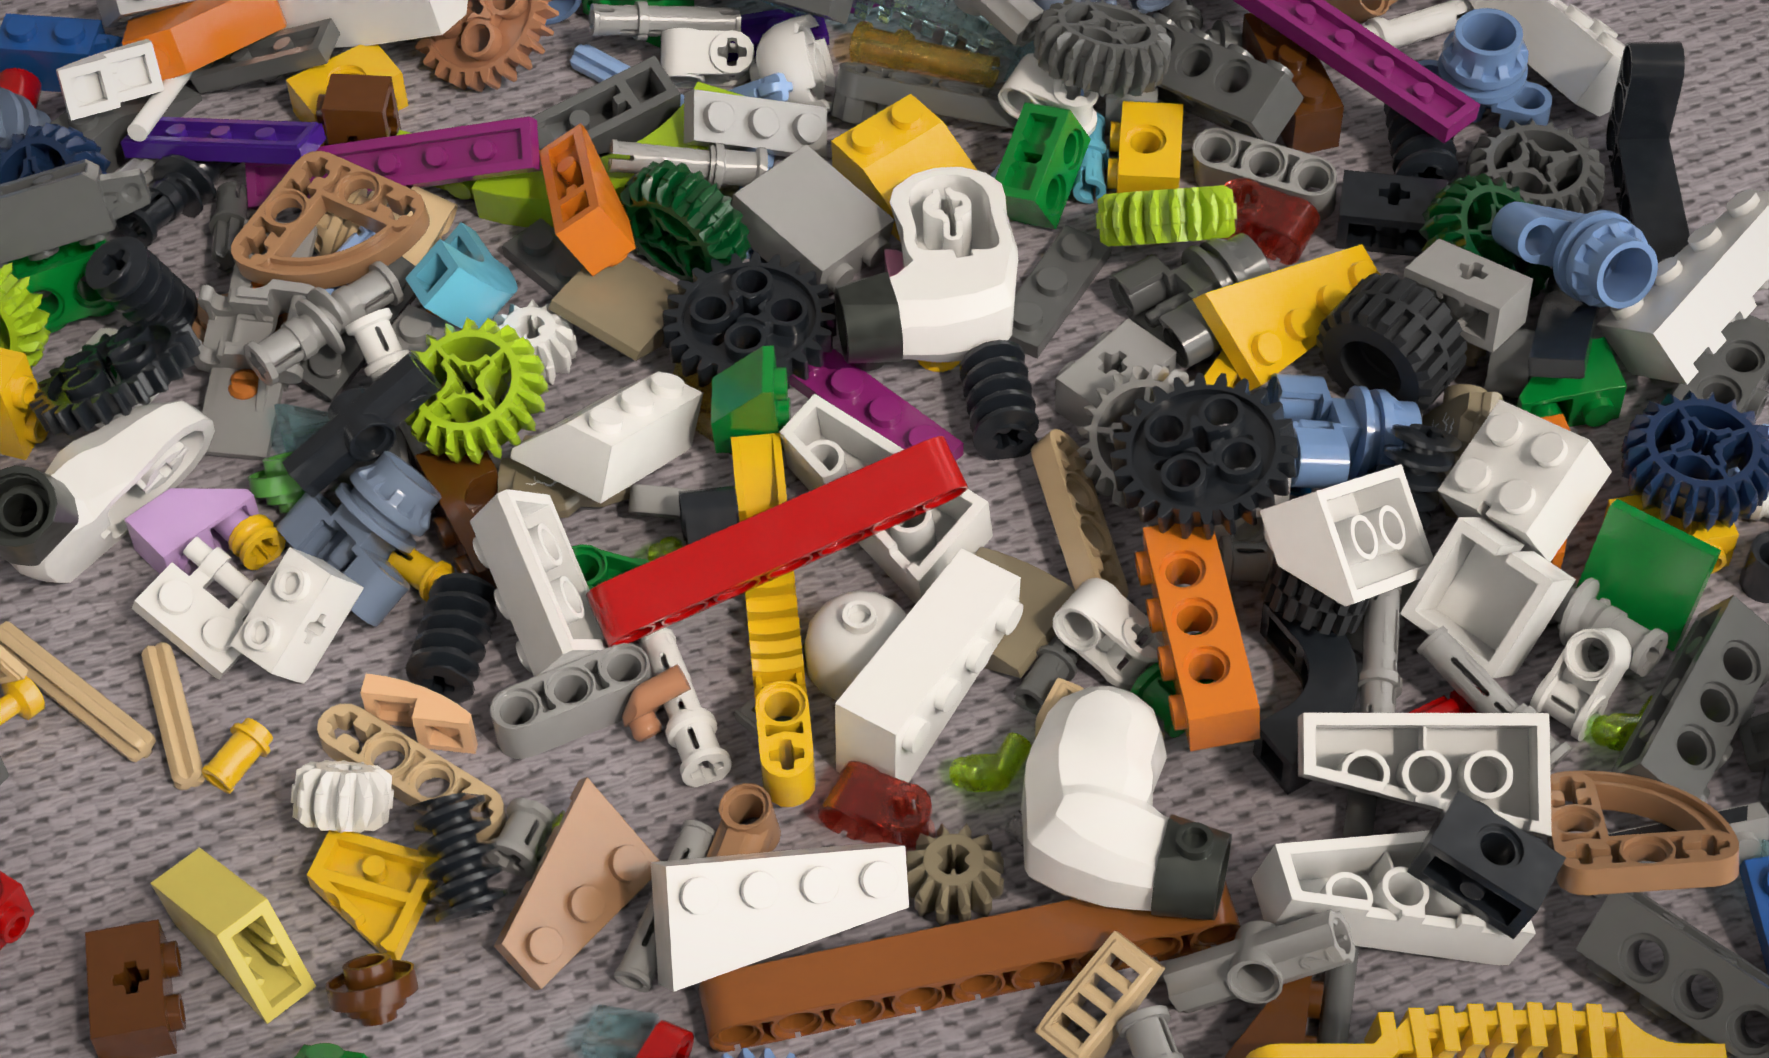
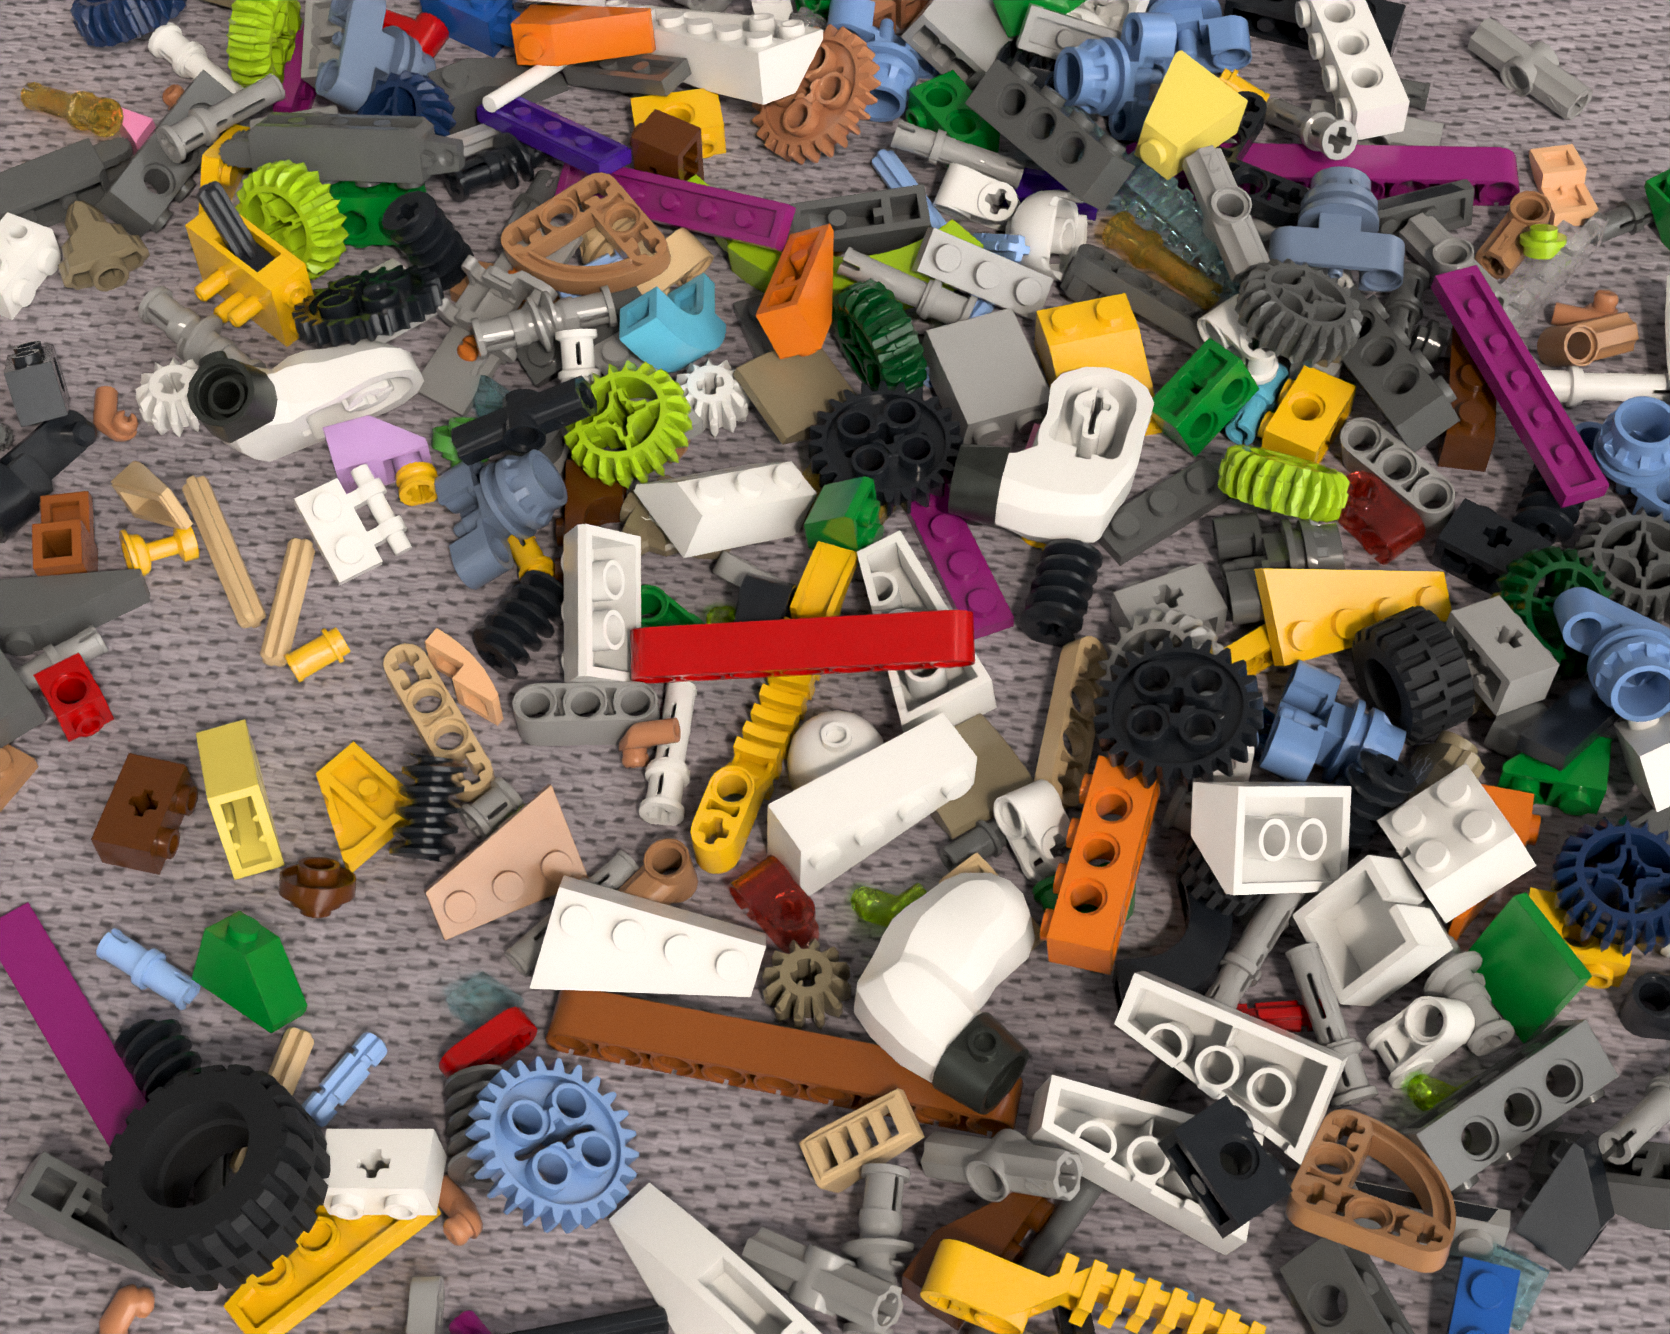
camera: 25 degrees right, 5 degrees up
(109, 78) = (484, 51): white slope -> none
(296, 616) = (409, 559): white brick -> none
(342, 796) = (370, 721): white gear -> none

